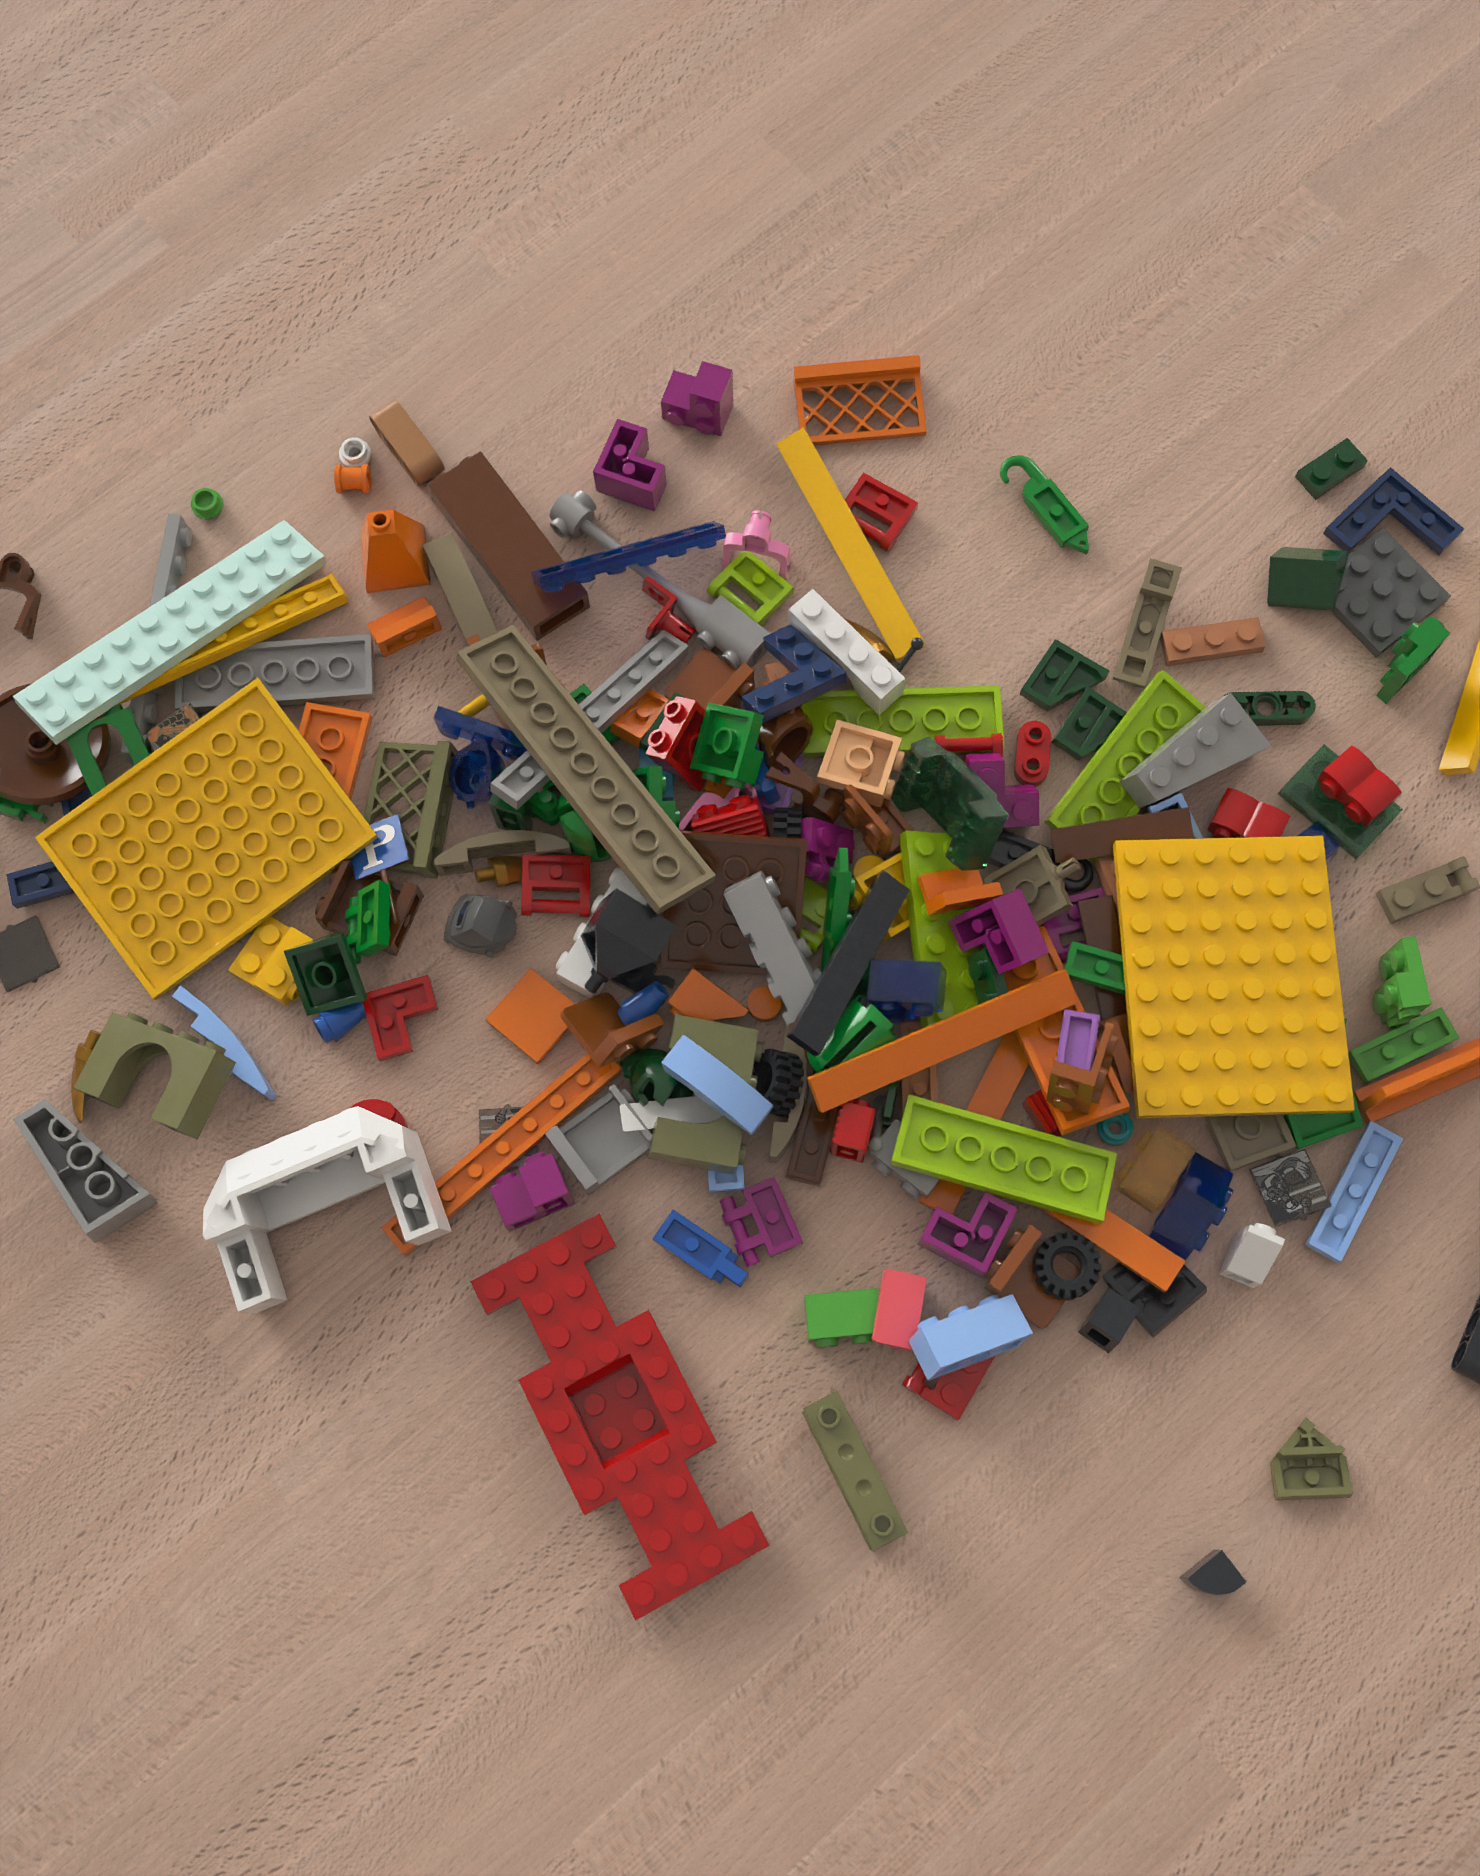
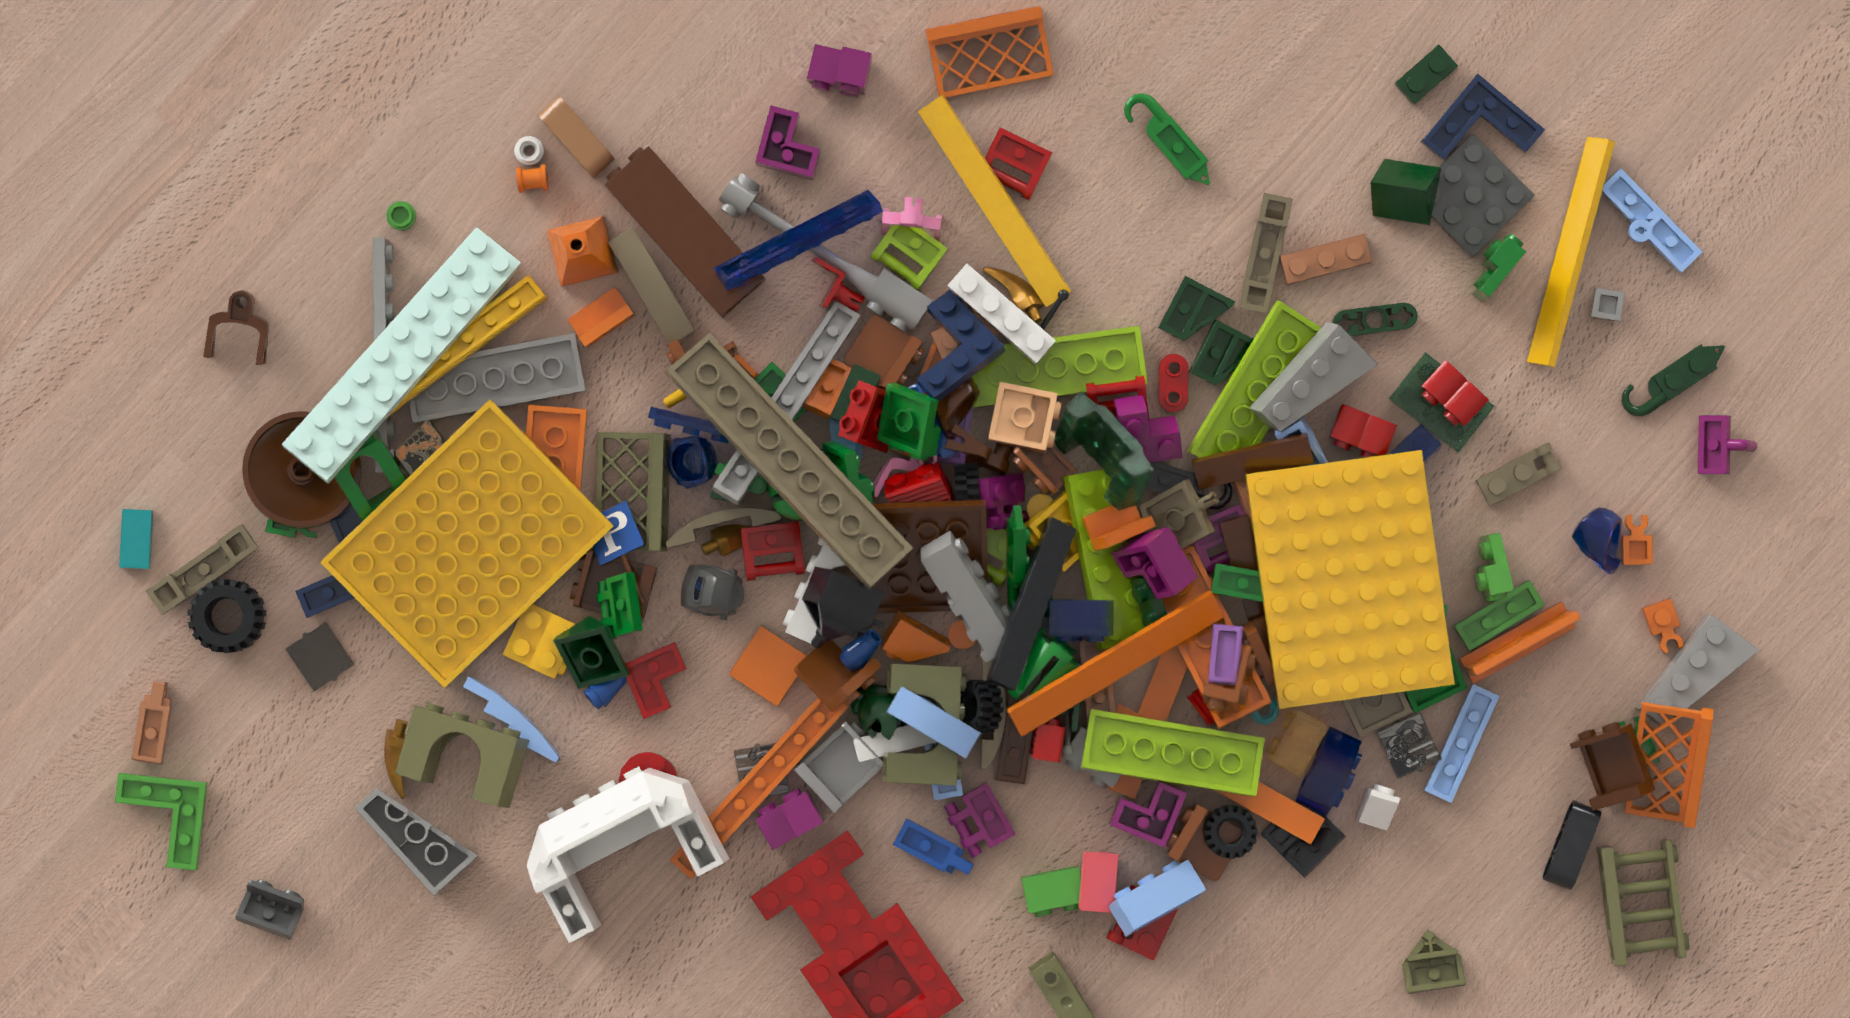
camera: 10 degrees left, 15 degrees up
(1109, 1320) = (1268, 869): black brick -> none

